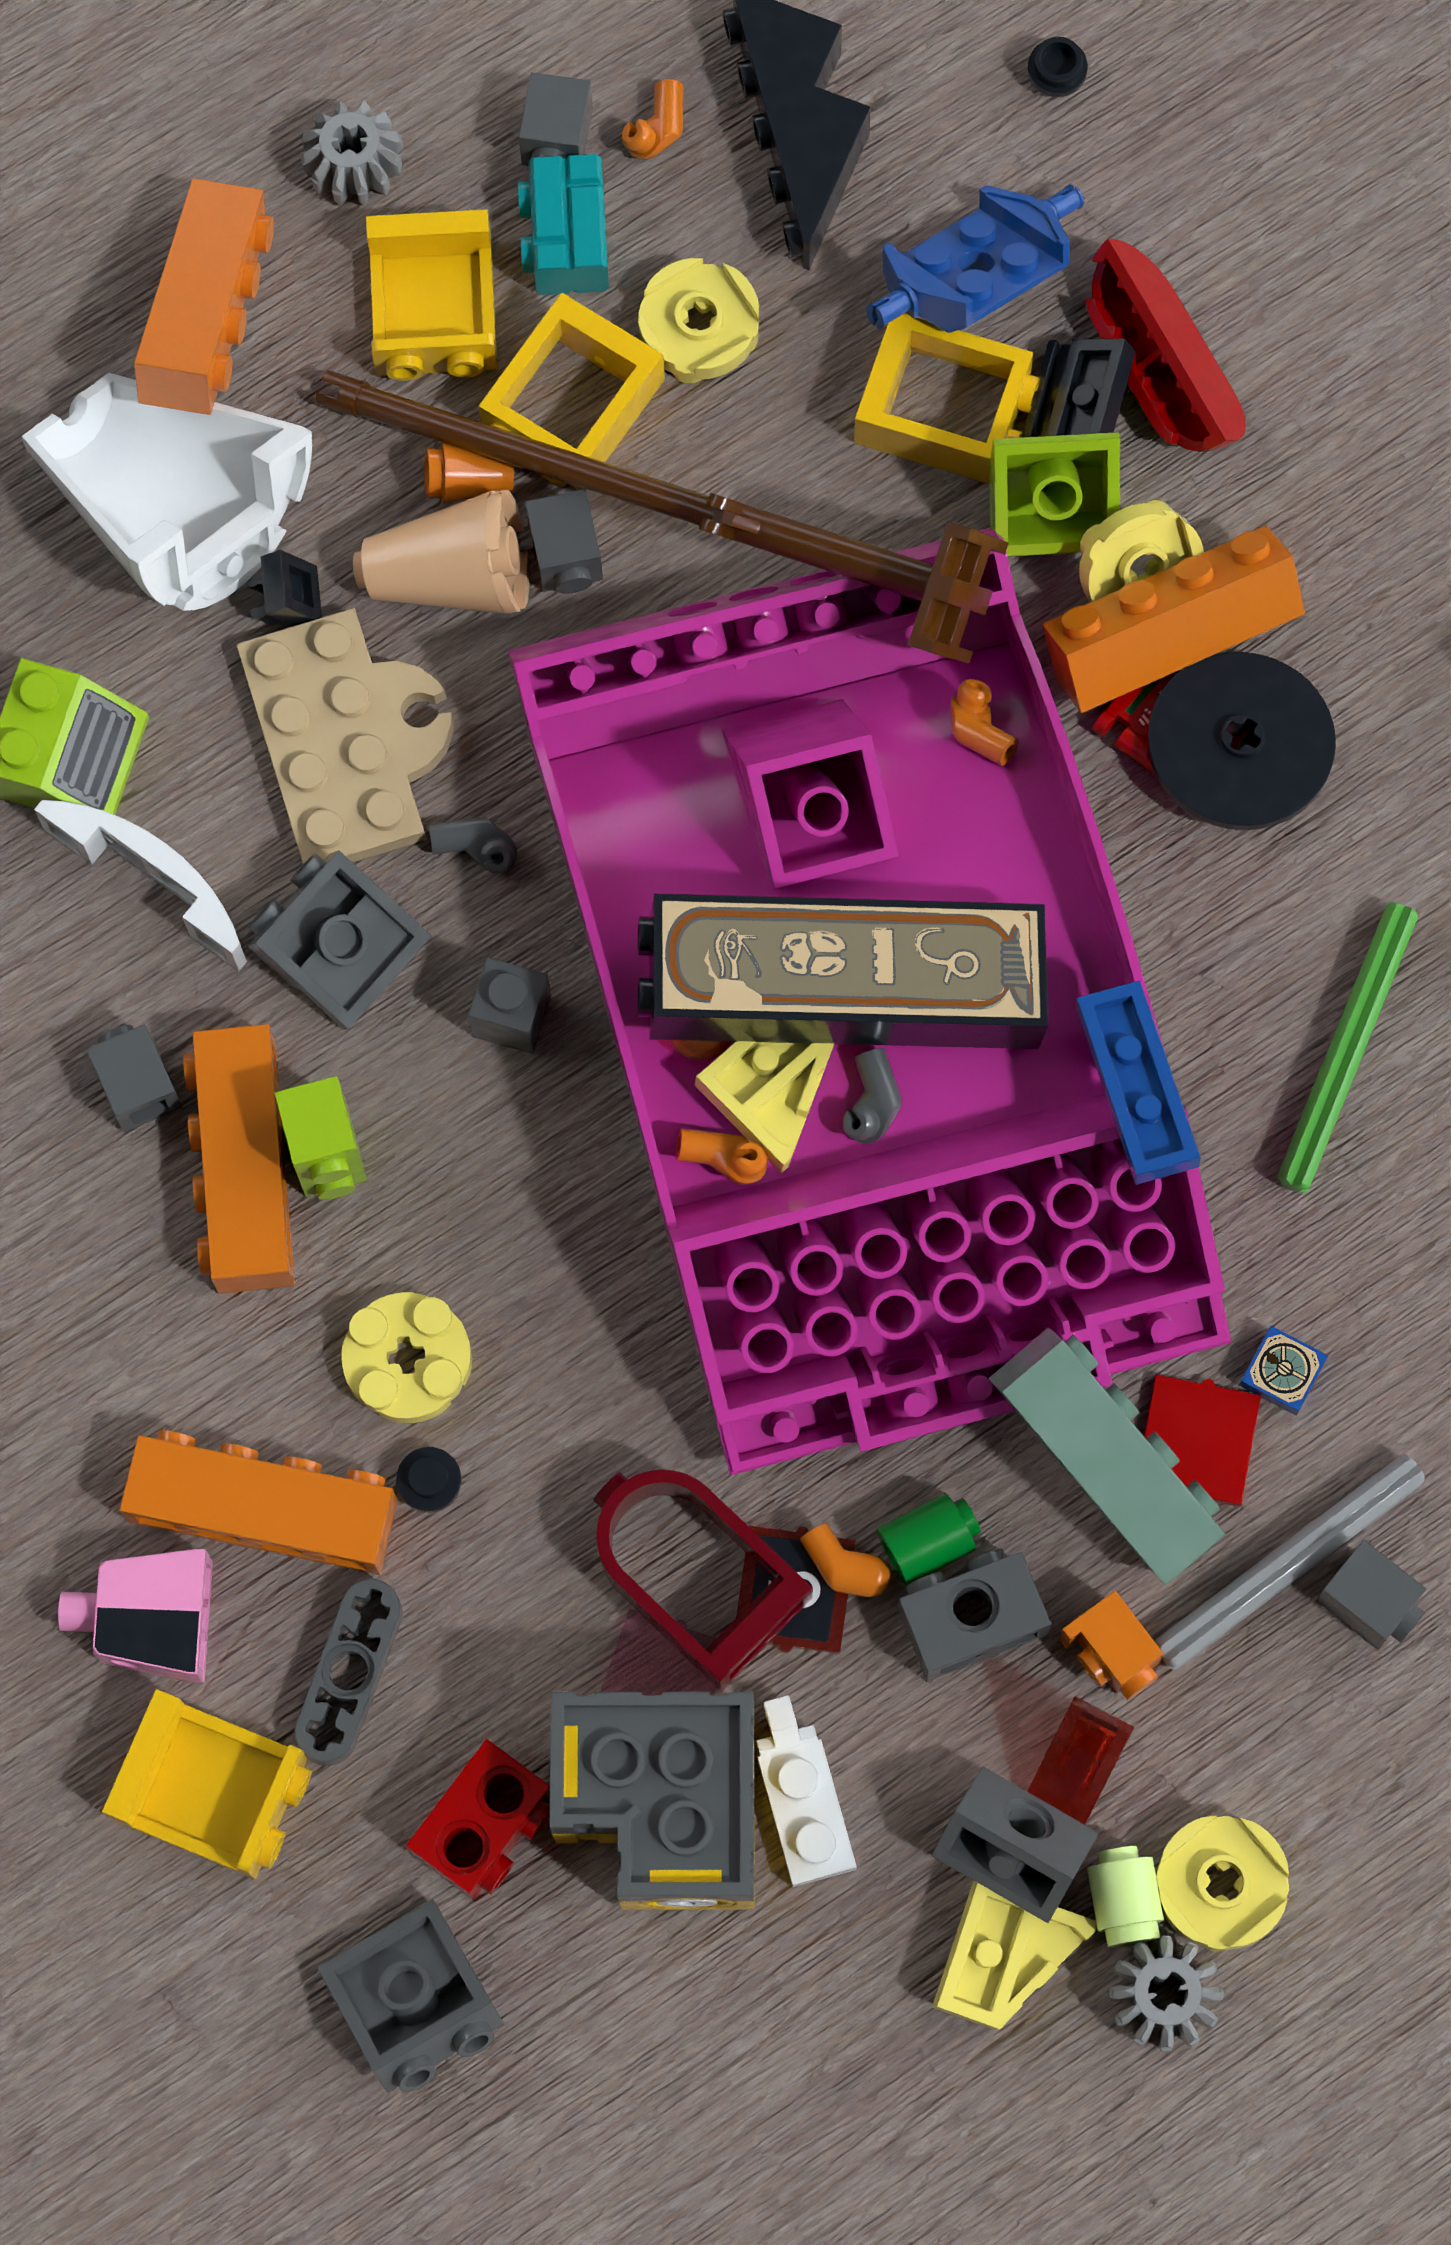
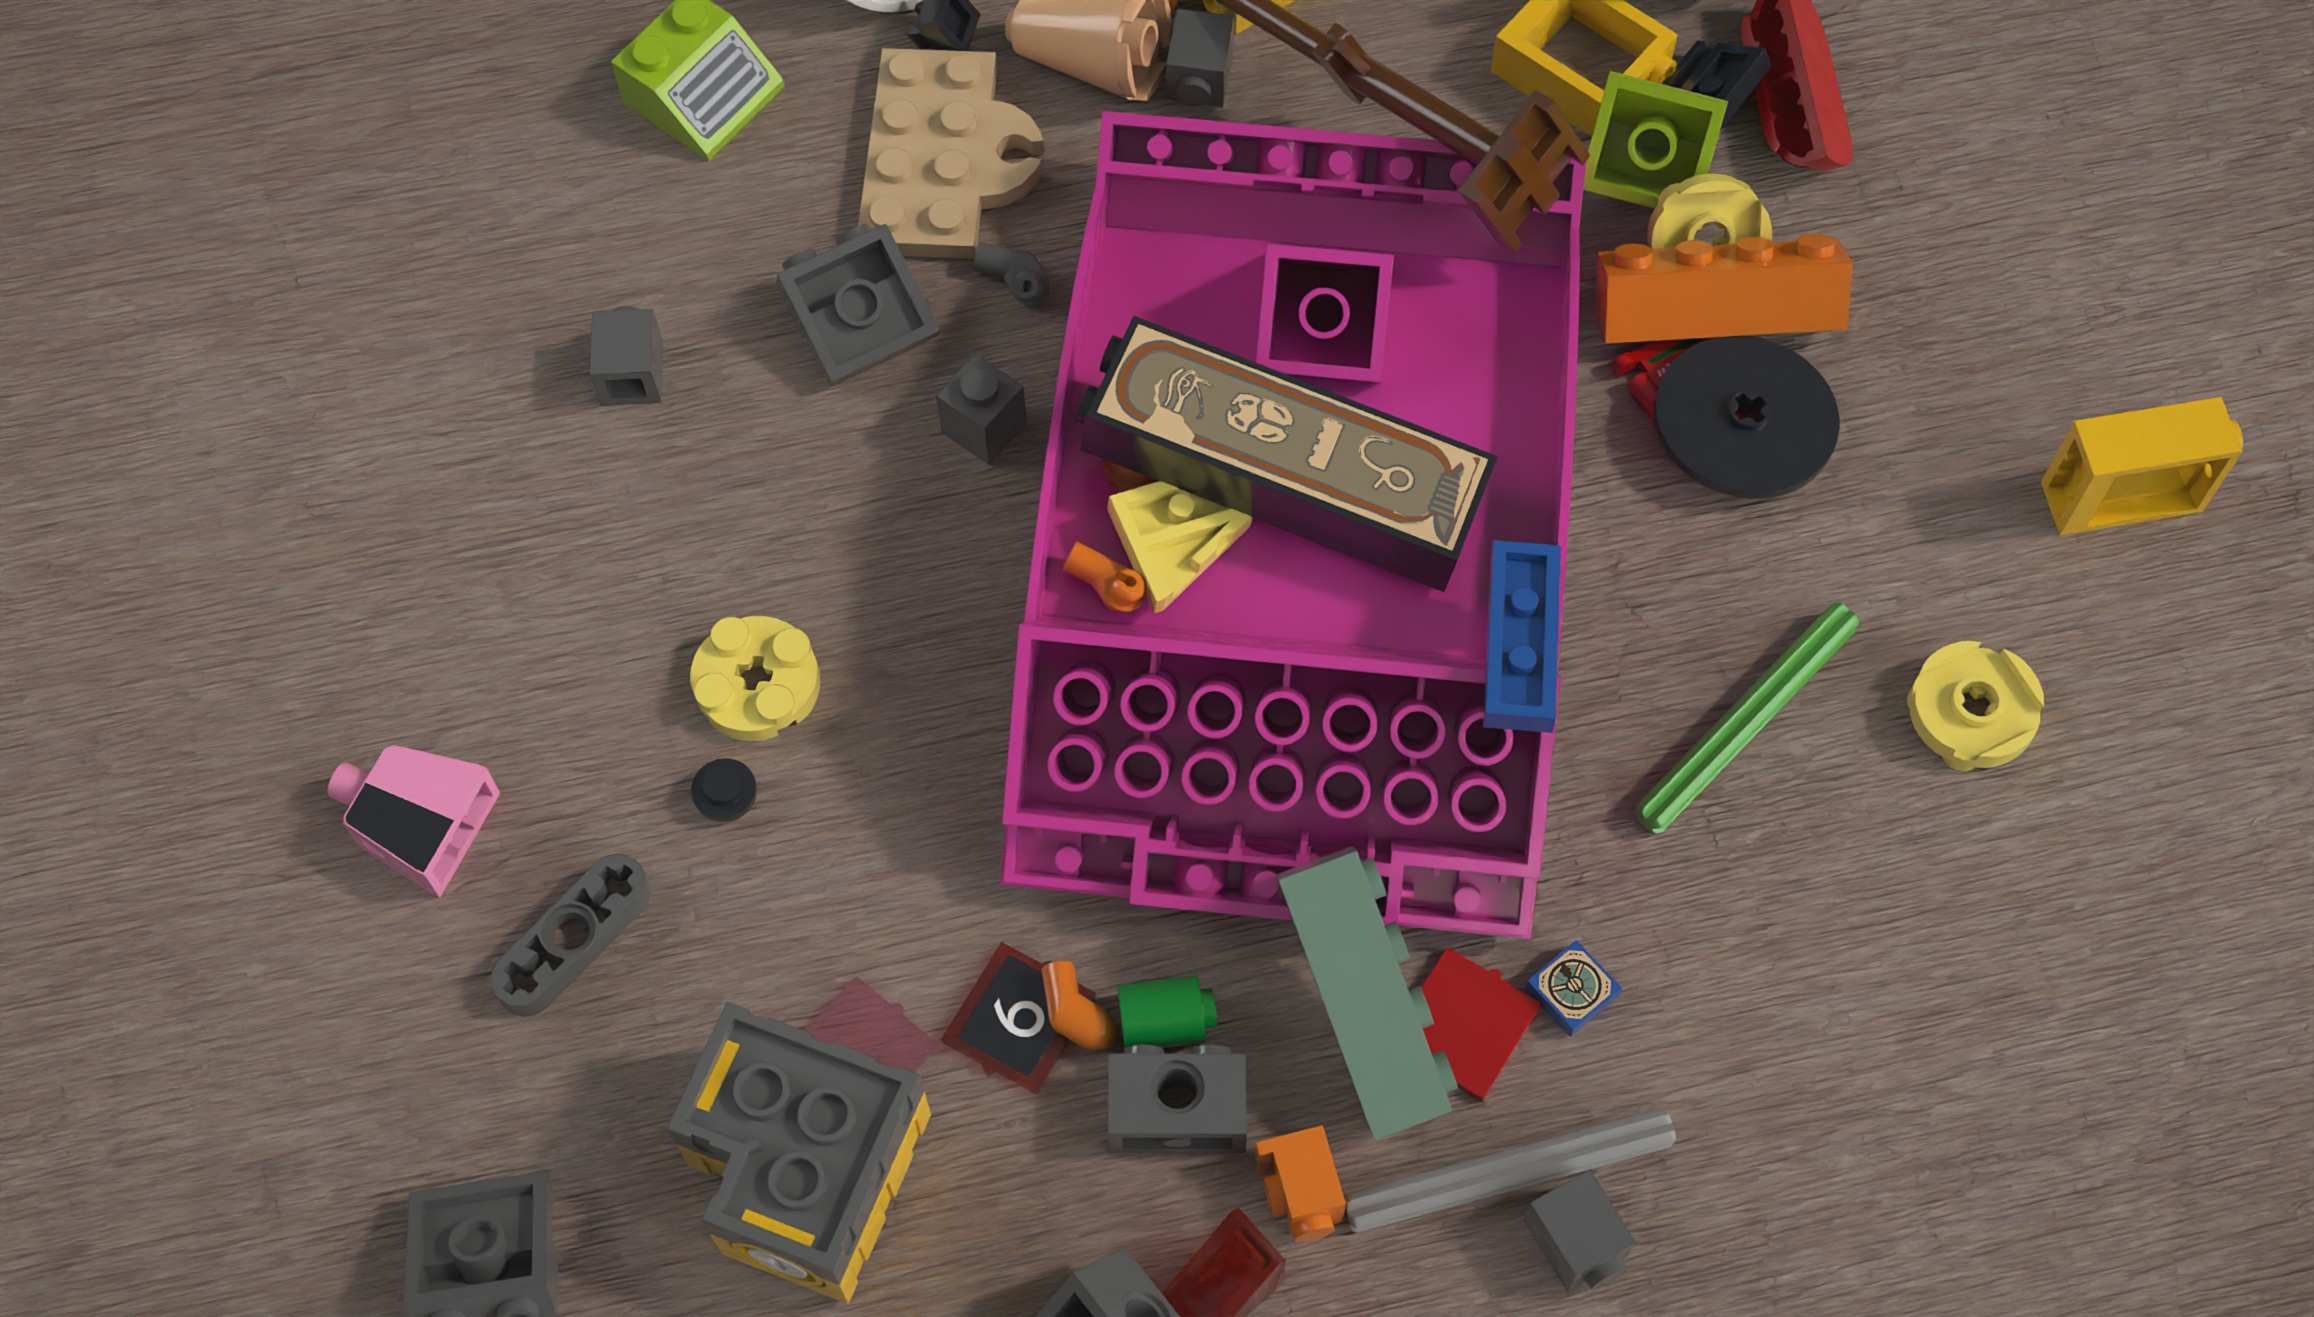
camera: 20 degrees right, 10 degrees down
(92, 830) = (693, 152): white slope -> none
(207, 1786) = (390, 985): yellow panel -> none
(241, 1159) = (686, 456): orange brick -> none
(259, 1503) = (561, 752): orange brick -> none
(321, 1138) = (760, 453): lime brick -> none
(466, 1811) = (617, 1099): red brick -> none
(754, 1626) = (960, 1033): dark red window -> none
(802, 1798) = (941, 1215): white hinge -> none
(878, 1102) = (1272, 587): dark grey arm -> none
(973, 725) = (1500, 305): orange arm -> none

